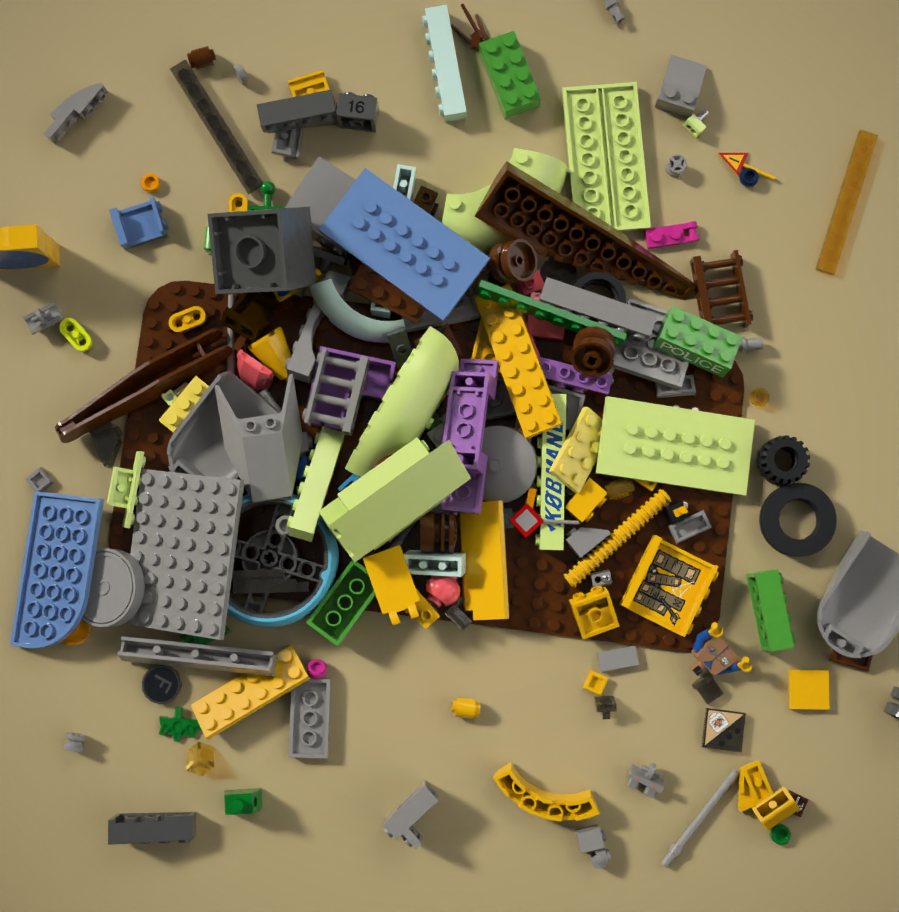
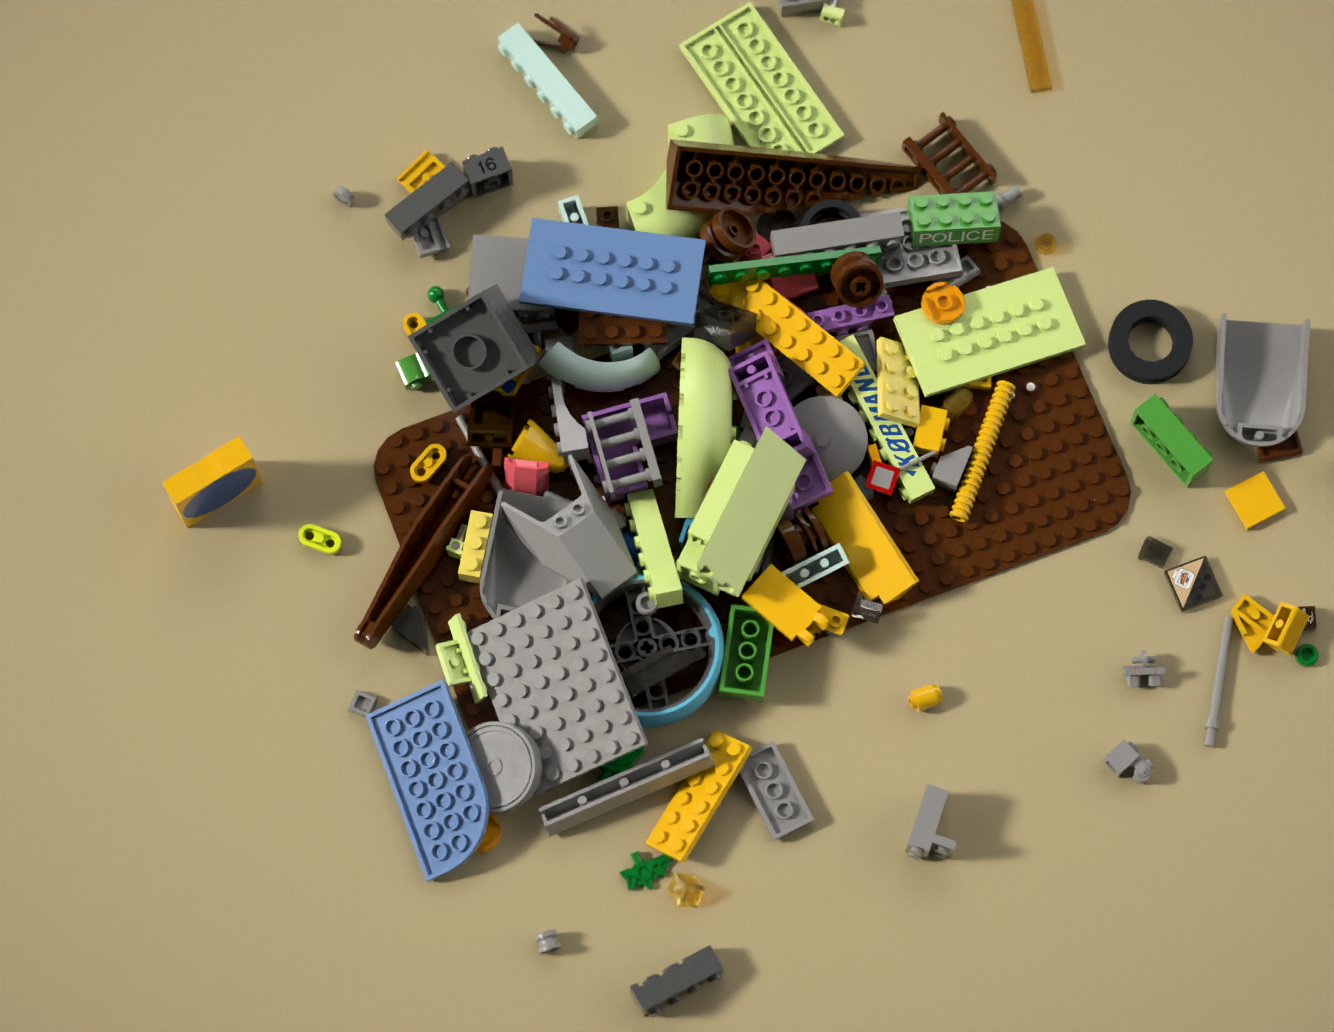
camera: 25 degrees left, 10 degrees down
(43, 318) = (278, 538): light grey hips -> none
(78, 104) = (194, 311): light grey slope -> none
(139, 224) = (323, 396): medium blue panel -> none
(150, 183) = (311, 351): light orange tile -> none
(161, 684) = (603, 839): black tile -> none
(201, 57) = (295, 200): reddish brown brick -> none
(216, 126) = (348, 260): clear smoke plate -> none
(242, 801) = (750, 907): green torso -> none
(316, 669) = (754, 738): dark pink tile -> none
(399, 345) = (661, 376): dark grey plate -> none
(442, 590) = (836, 591): coral plant -> none
(470, 334) = (725, 325): none -> clear smoke brick
(509, 74) = (618, 59): bright green brick -> none
(544, 803) = (1055, 749): yellow brick -> none
(594, 612) = (999, 534): yellow plate -> none
(595, 682) = (1040, 605): yellow tile -> none
(605, 577) = (991, 496): light grey piece -> none
(605, 705) = (1063, 621): clear smoke tile -> none
(617, 658) = (1049, 570): light grey tile -> none
(651, 405) = (943, 303): none -> light orange tile
(669, 586) = (1059, 471): panel -> none
(671, 235) = (869, 132): dark pink plate -> none
(676, 512) = (1027, 395): black piece -> none
(678, 162) = (835, 57): light grey wheel -> none
(689, 526) = (1047, 403): light grey tile -> none
(715, 654) = (1142, 512): torso -> none
(736, 162) = (893, 28): piece -> none
(748, 177) = (914, 37): dark blue plate -> none
(798, 455) = (1108, 275): black tyre -> none

